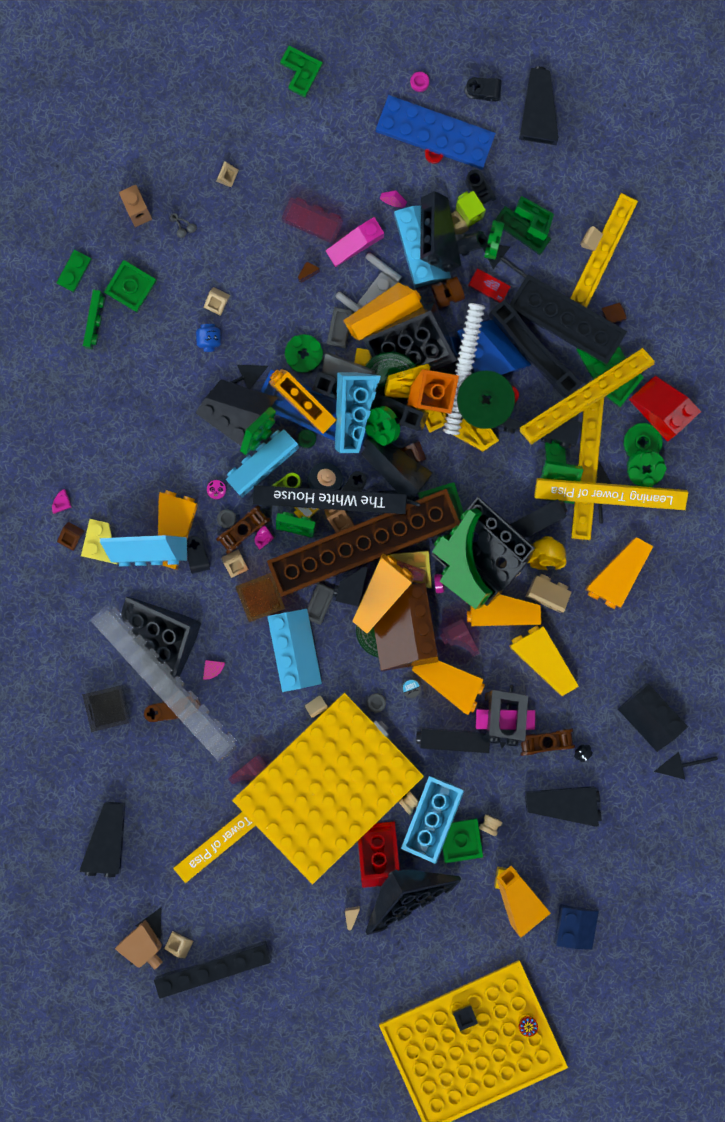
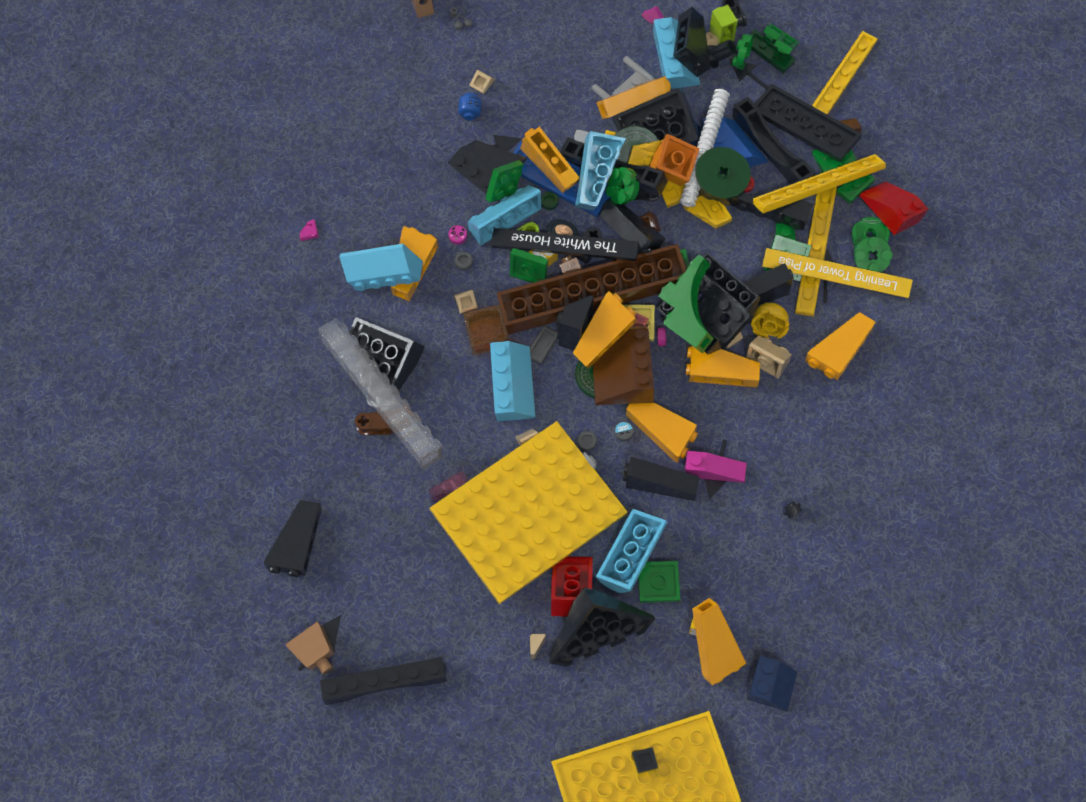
camera: 10 degrees right, 20 degrees down
(70, 536) = (312, 260): reddish brown slope -> none
(74, 271) = (356, 45): green plate -> none
(92, 547) = (333, 270): light yellow wing -> none
(94, 319) = (367, 83): green plate -> none
(106, 708) = (319, 414): clear smoke container -> none
(130, 286) = (405, 61): green plate -> none
(178, 945) = (352, 655): tan slope -> none
(197, 558) = (430, 288): black piece -> none
(212, 669) = (429, 392): dark pink tile -> none
(214, 847) = (406, 559): yellow tile -> none
(233, 534) = (488, 262): reddish brown piece -> none
(263, 537) = (496, 278): dark pink tile -> none
(294, 359) = (559, 121): green plate -> none
(307, 272) = (569, 64): reddish brown slope -> none
(312, 220) = (578, 25): clear pink brick -> none
(338, 331) = (591, 114): dark grey tile -> none
(355, 242) = (617, 44): dark pink slope -> none
(409, 802) = (608, 537): tan wheel -> none
(454, 290) = (701, 88): reddish brown wheel -> none
(459, 635) = (676, 385): clear pink arch -> none
(489, 286) = (736, 92): red tile -> none
(490, 825) = (691, 569): tan wheel -> none
(494, 733) = (718, 446): black panel -> none
(528, 1026) = (712, 779): tile -> none
(543, 657) = (759, 415): yellow slope -> none
(559, 741) = (742, 495): reddish brown piece -> none
(567, 804) = (771, 557): black slope -> none
(591, 239) = (832, 63): tan slope -> none
(652, 717) = (866, 482): black slope -> none
(674, 767) = (885, 536): black piece -> none

